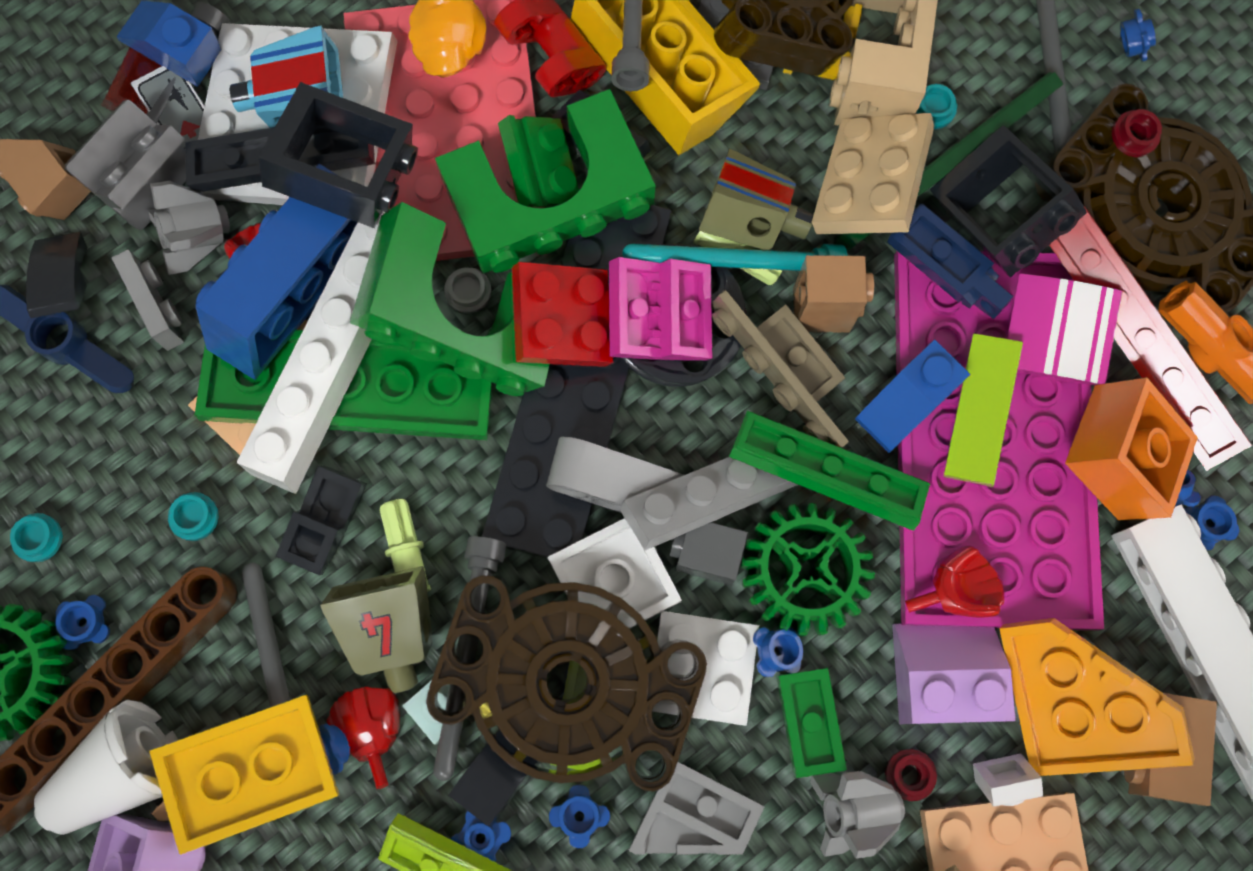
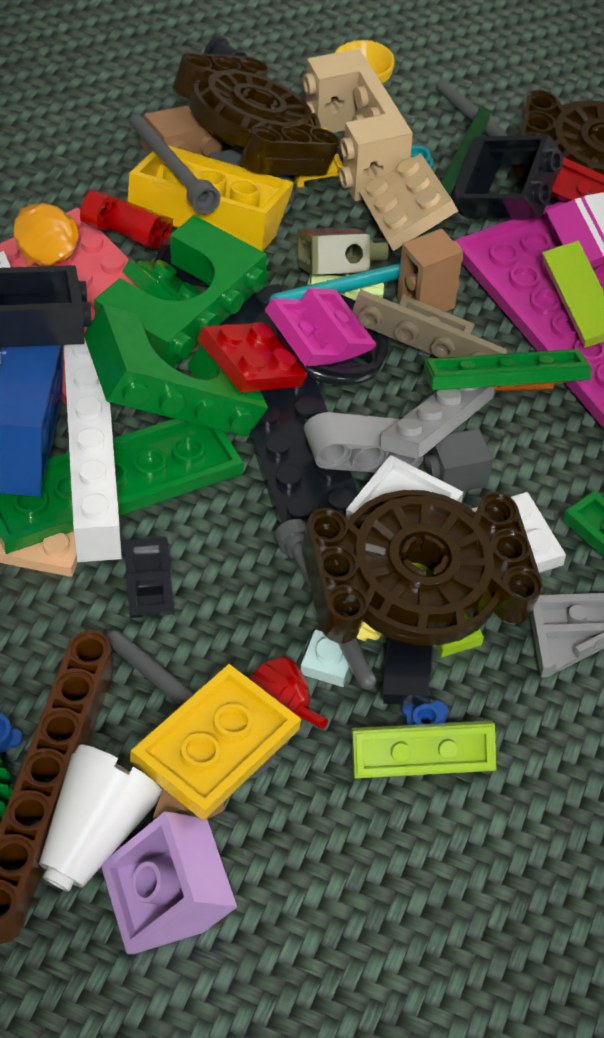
camera: 30 degrees left, 25 degrees down
(193, 516) = (41, 622): teal plate -> none
(383, 624) = (253, 607): olive torso -> none
(401, 536) = (229, 566): yellowish green axle -> none
(579, 831) = (493, 662): blue plate -> none
(789, 649) = (552, 499): blue plate -> none
(825, 584) = (559, 437): green gear -> none
(912, 396) = (529, 303): blue slope -> none
(951, 262) = (497, 227): dark blue hinge -> none
(1137, 36) = (516, 78): blue plate -> none
(1144, 124) = (560, 107): dark red plate -> none

